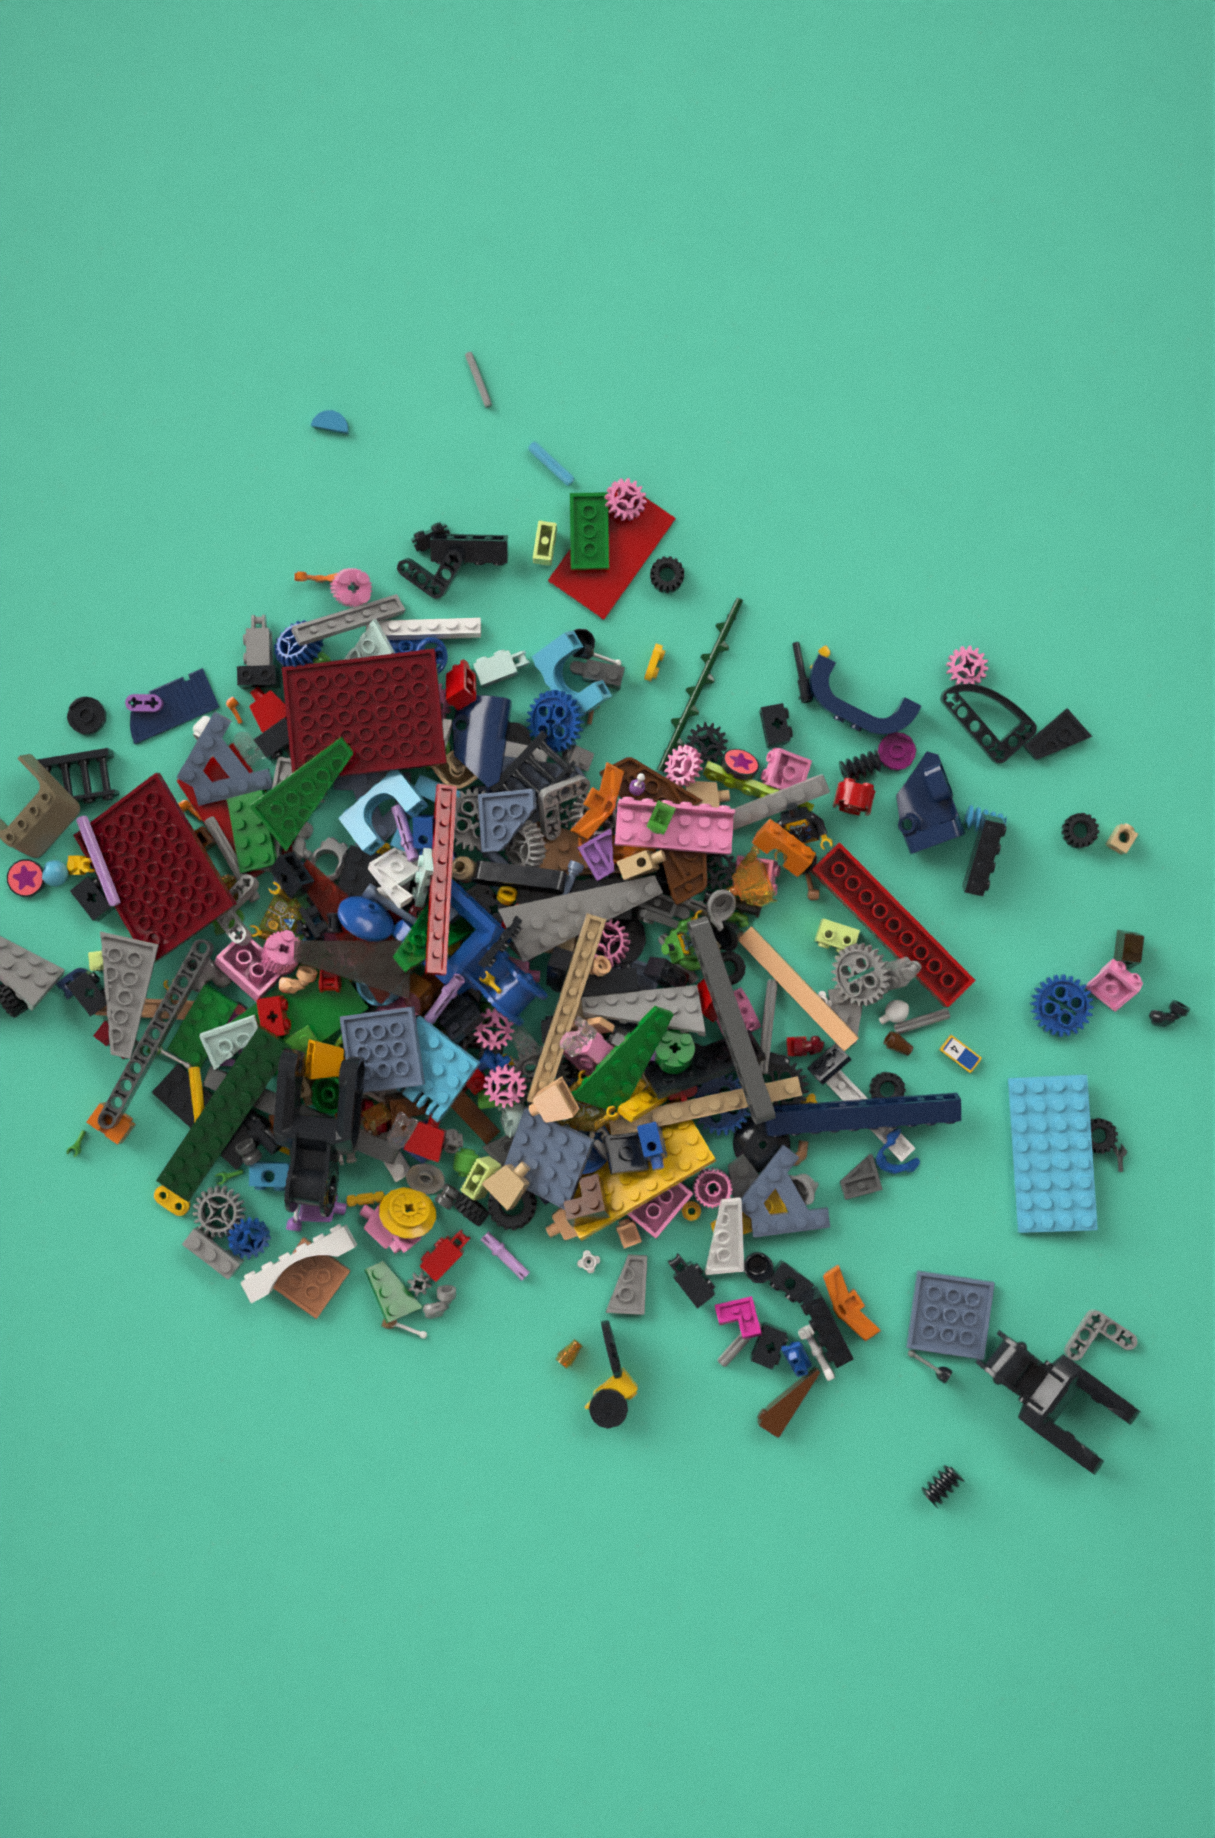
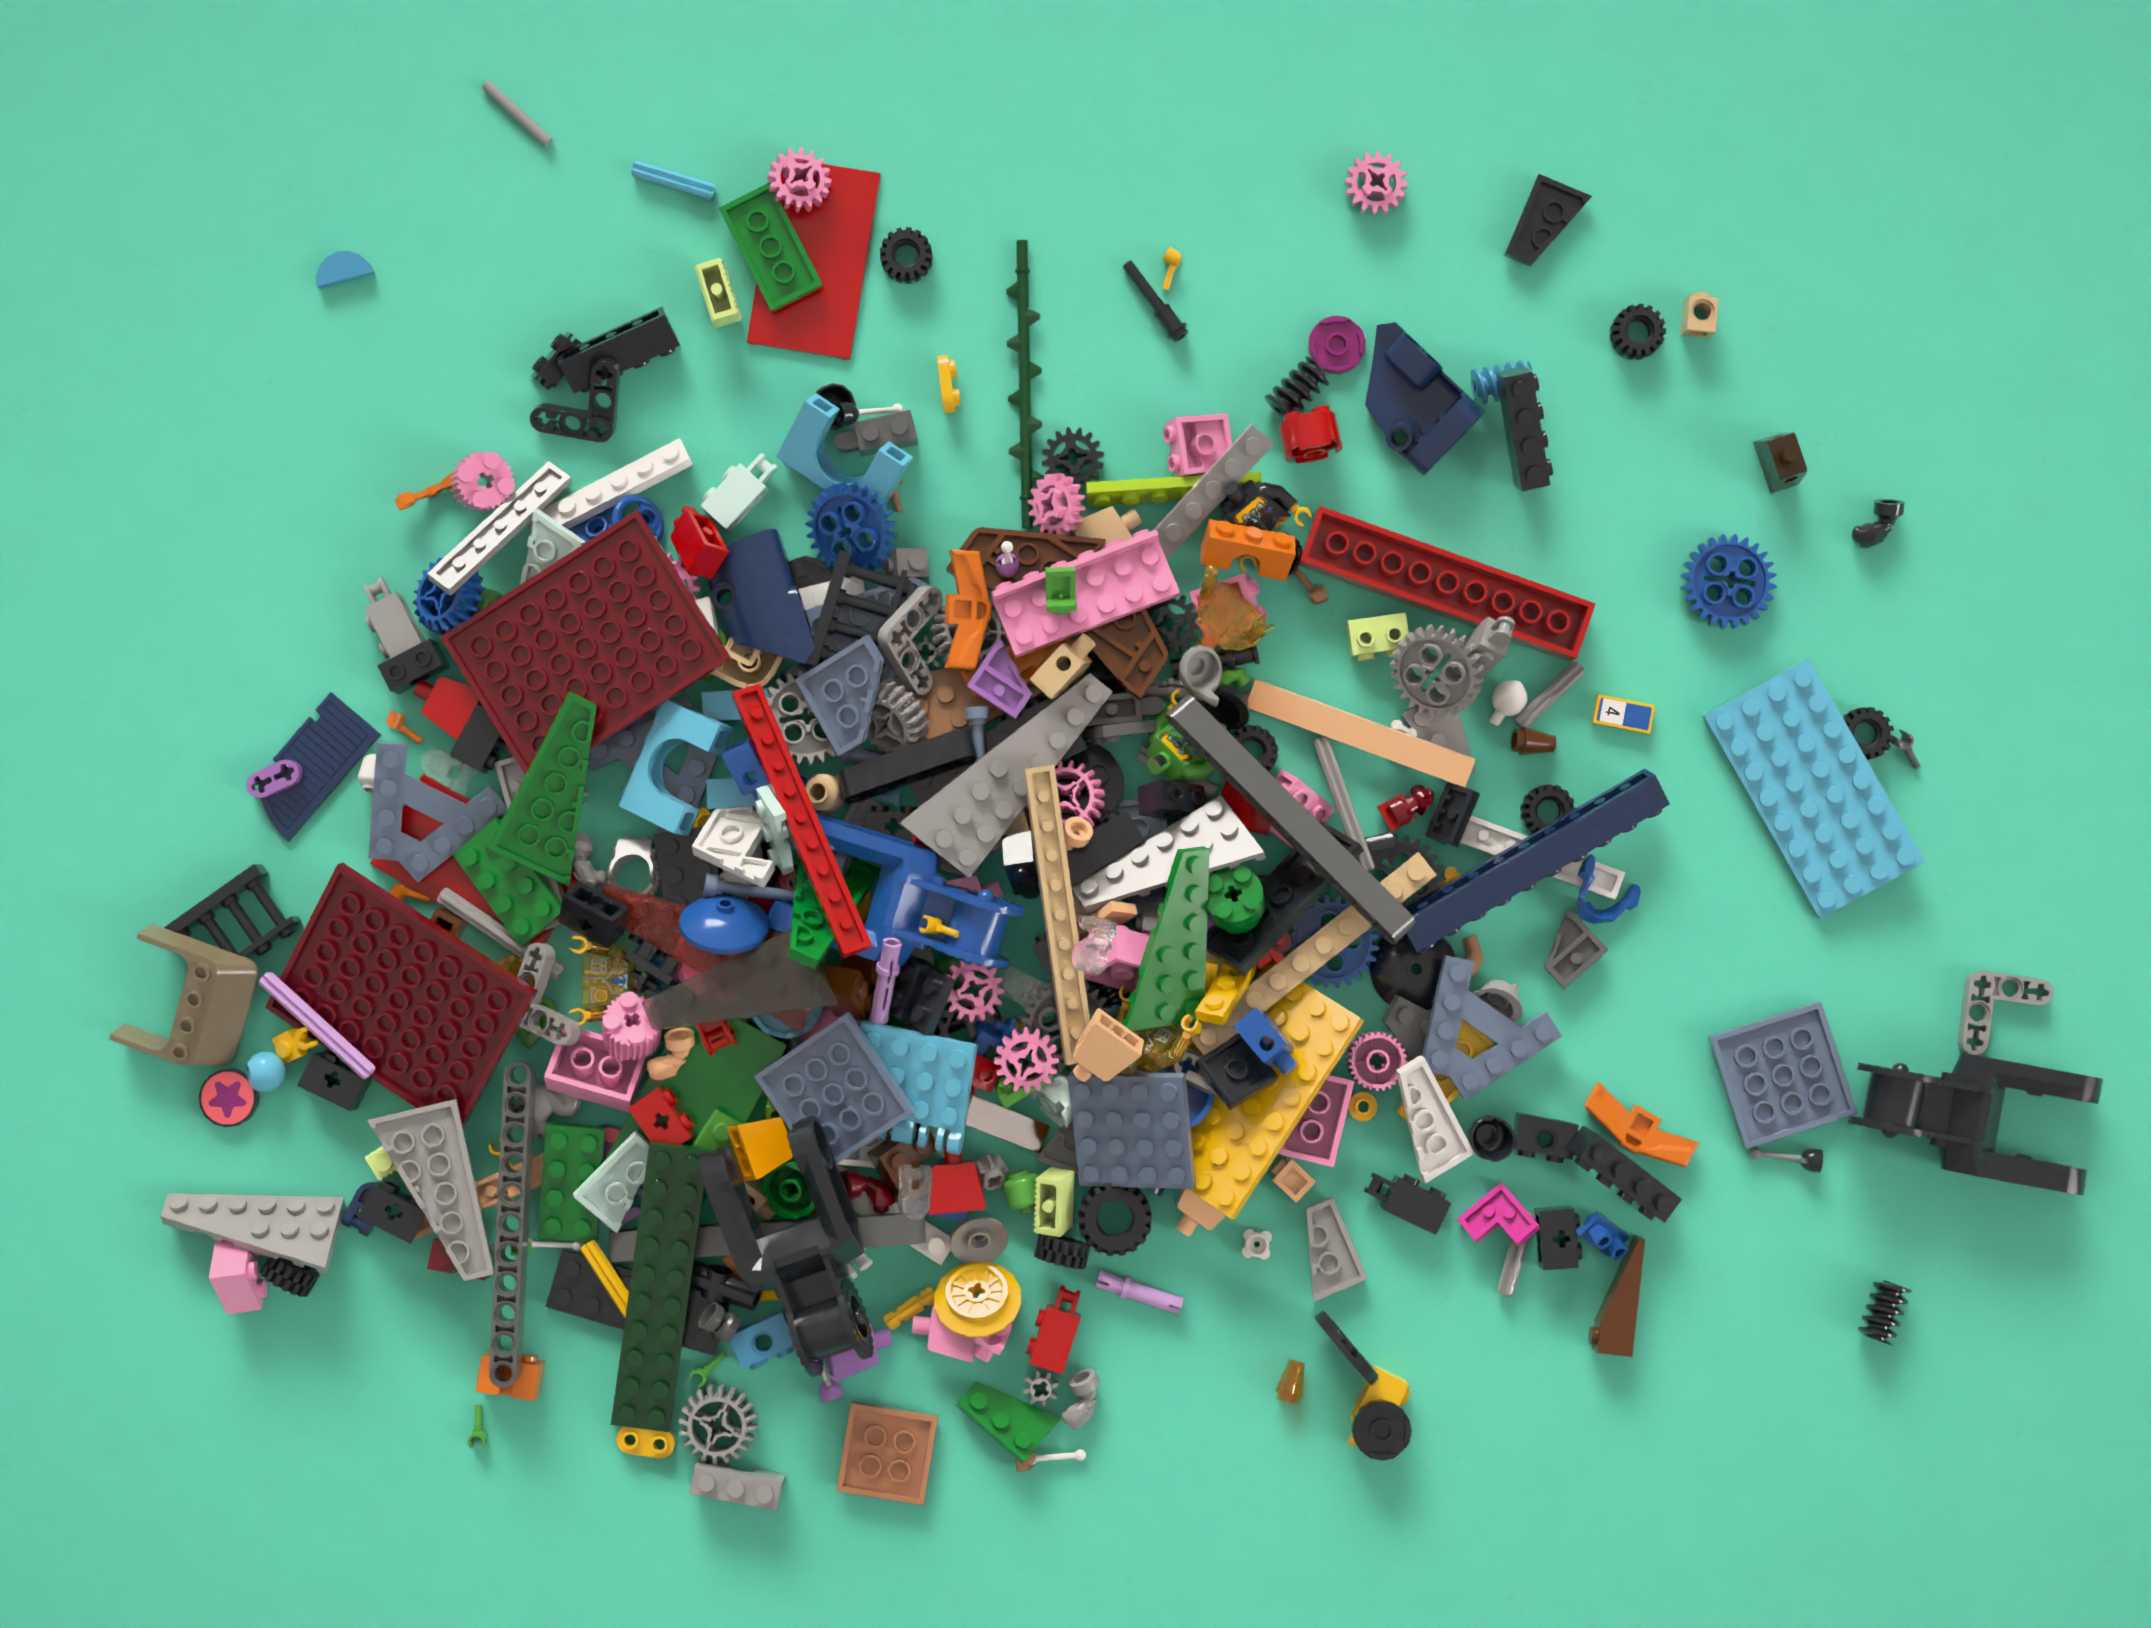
camera: 30 degrees left, 0 degrees up
(86, 715) = (203, 834): black tile -> none
(239, 1240) = (766, 1450): blue gear -> none
(334, 924) = (684, 952): black bush -> none
(334, 1244) = (897, 1391): white arch -> none
(375, 1116) = (870, 1188): clear orange bracket -> none
(405, 833) = (720, 781): lavender pin -> none
(447, 1196) = (1017, 1255): dark grey wheel -> none
(502, 944) = (928, 867): black wing -> none
(507, 895) = (901, 799): yellow tile -> none
(508, 1184) = (1096, 1192): tan torso -> none
(591, 1205) = (1224, 1164): reddish brown brick -> none
(740, 764) = (1132, 465): tile -> none
(772, 735) = (1139, 380): black brick -> none
(807, 1332) = (1601, 1194): white piece -> none
(842, 711) = (1238, 325): dark blue arch -> none
(1002, 745) = (1440, 258): black beam -> none
(1115, 984) = (1786, 518): bright pink plate -> none

